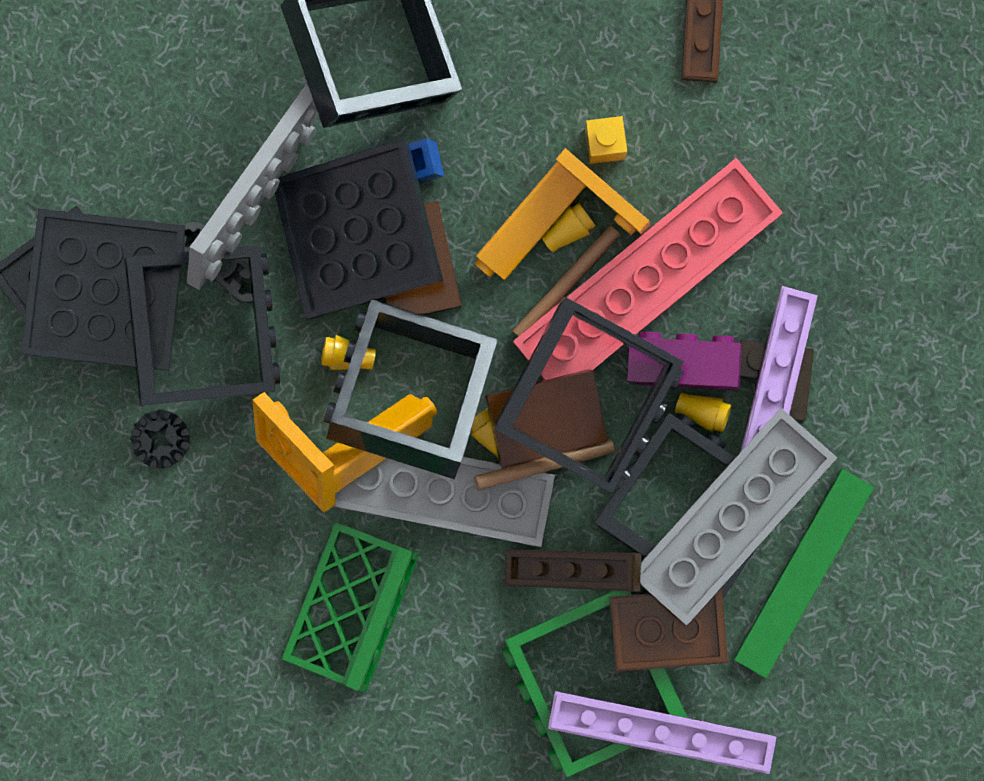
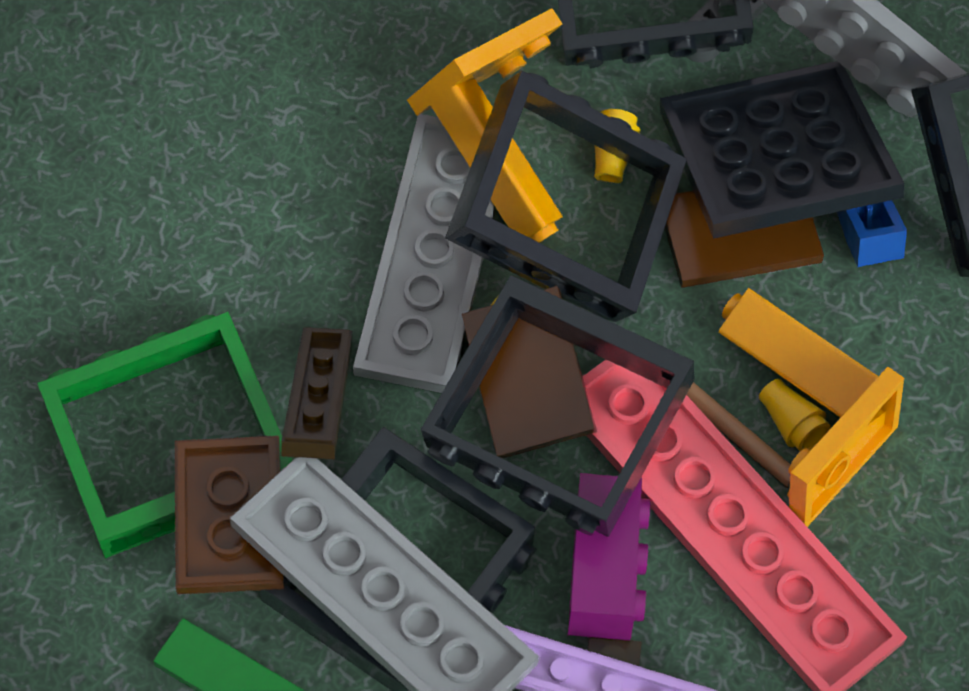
camera: 85 degrees right, 20 degrees down
(379, 619) = (269, 173): green fence -> none
(540, 465) = (458, 345): medium nougat bar -> none
(605, 140) = (920, 461): yellow brick -> none
(662, 732) = (84, 506): lavender tile -> none
(705, 411) = (537, 589): yellow cone -> none

